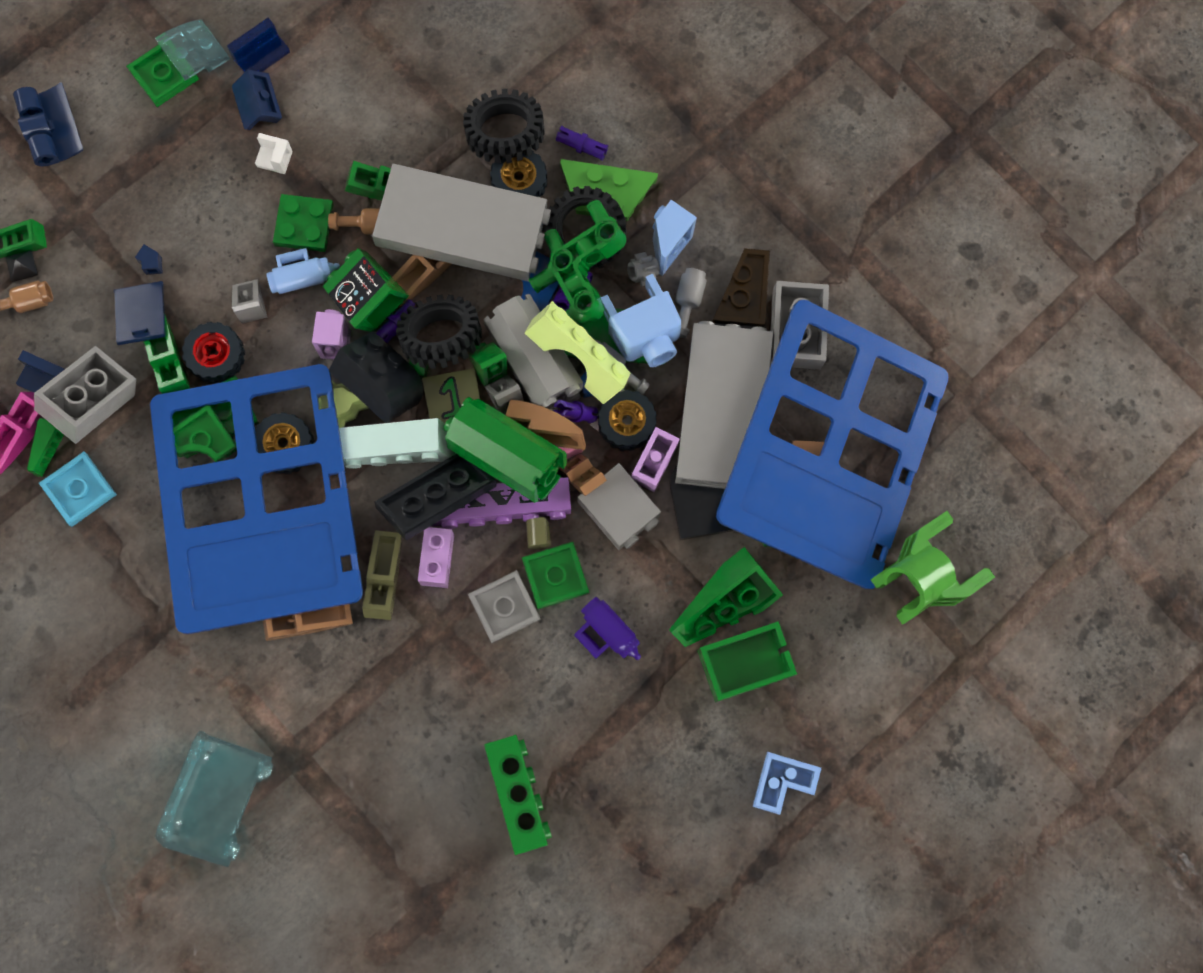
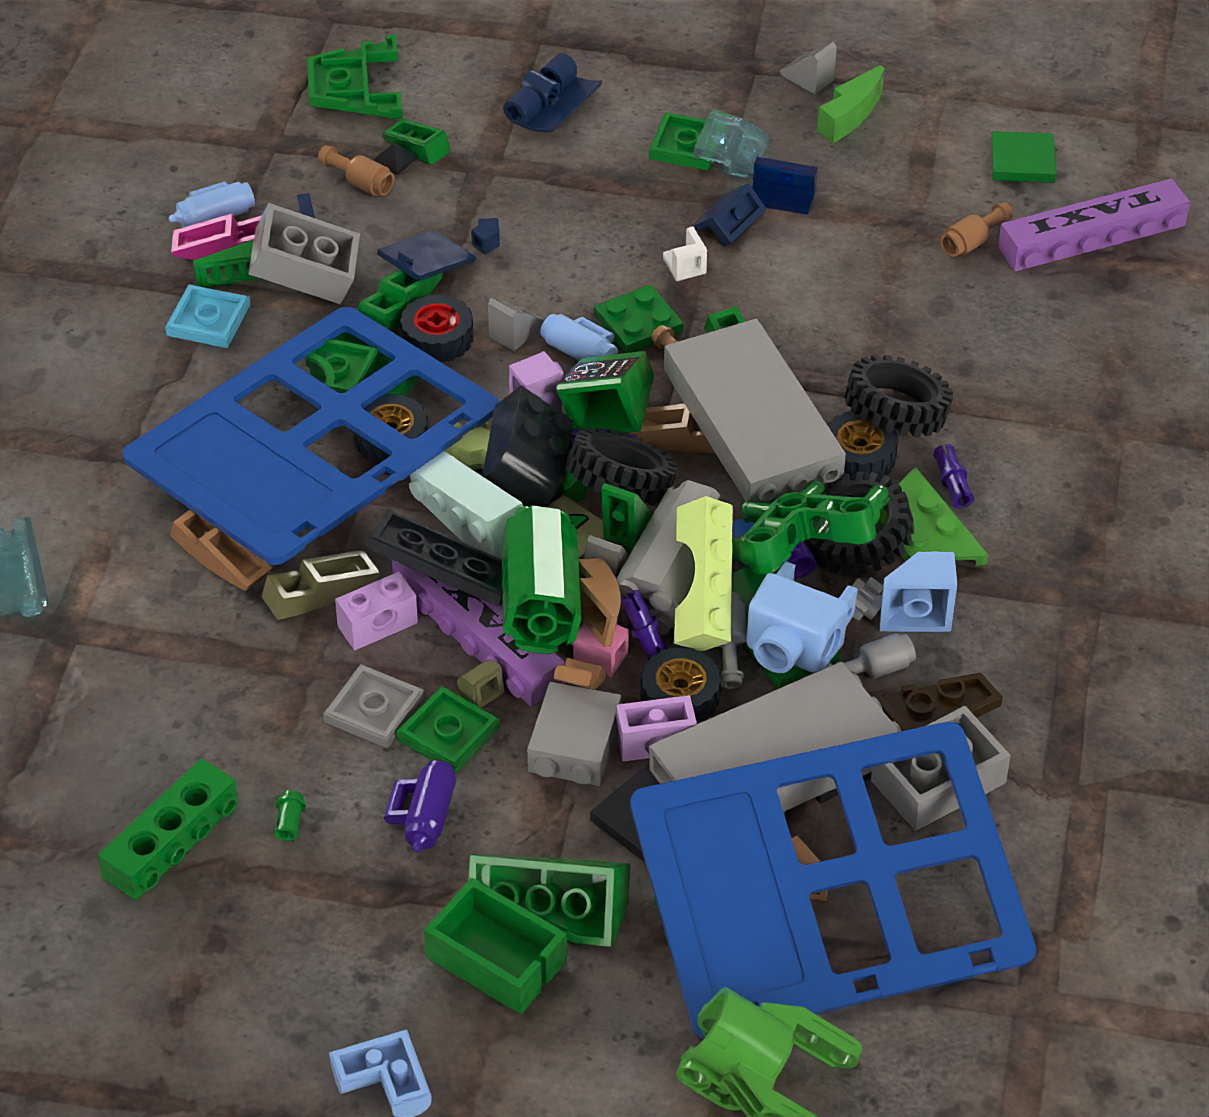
camera: 60 degrees right, 30 degrees down
(556, 714) = (290, 807): none -> green pin

